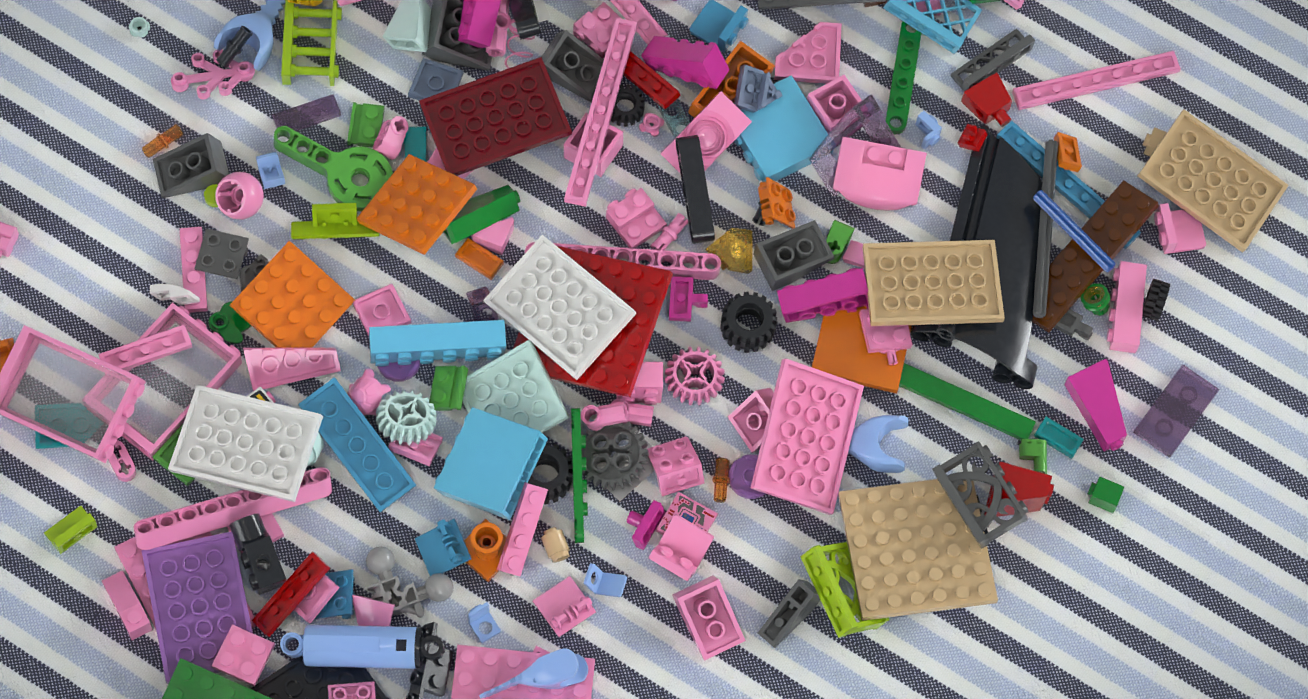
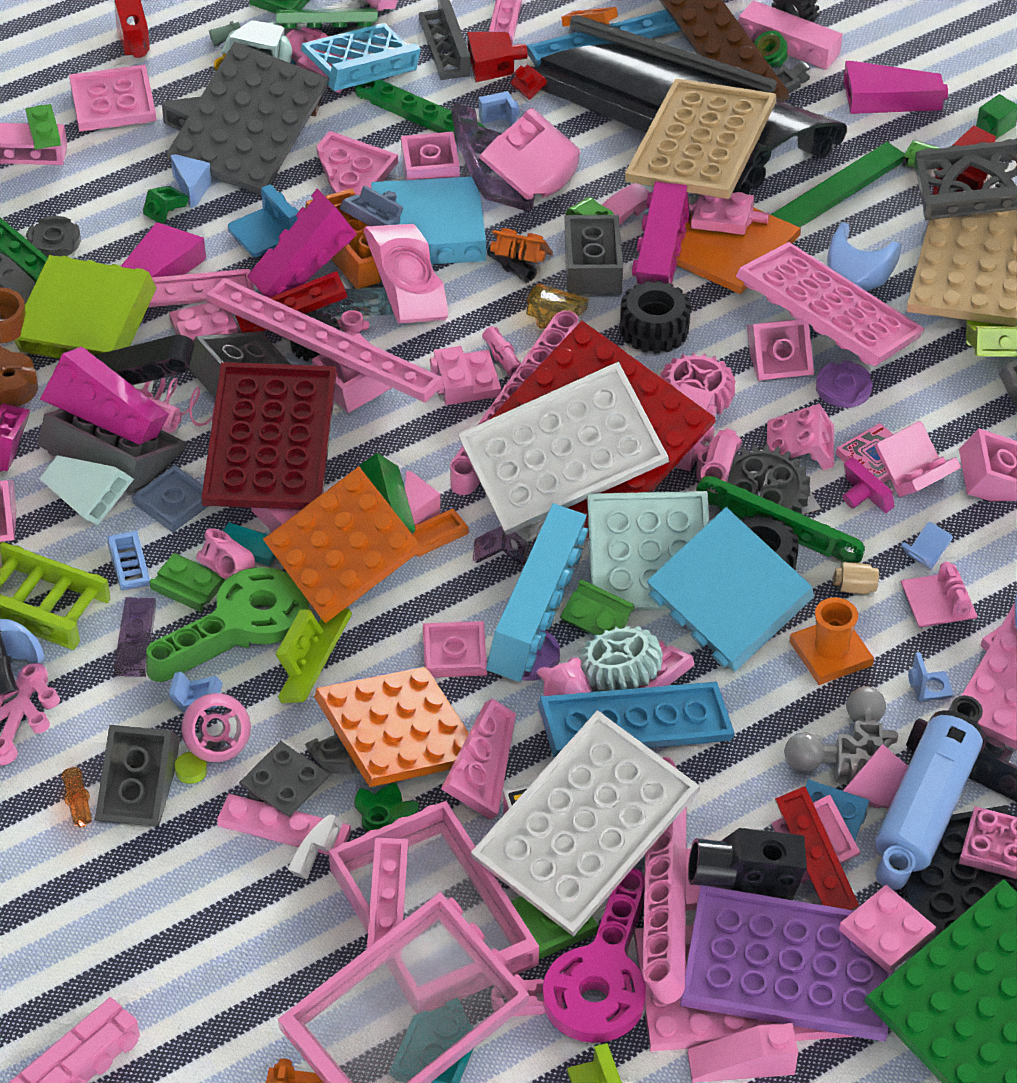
camera: 60 degrees left, 20 degrees down
(154, 496) = (601, 968): none -> dark pink beam
(367, 71) = (126, 541): none -> light blue slope
(443, 547) = (814, 686): dark azure hinge -> none
(522, 529) = (826, 587): bright pink plate -> none
(695, 189) = (465, 300): black beam -> none
(721, 479) = (840, 406): clear orange axle -> none
(1059, 437) = (918, 129): teal tile -> none
(1074, 231) = (692, 26): blue axle -> none
(1176, 411) = (922, 42): clear purple tile -> none

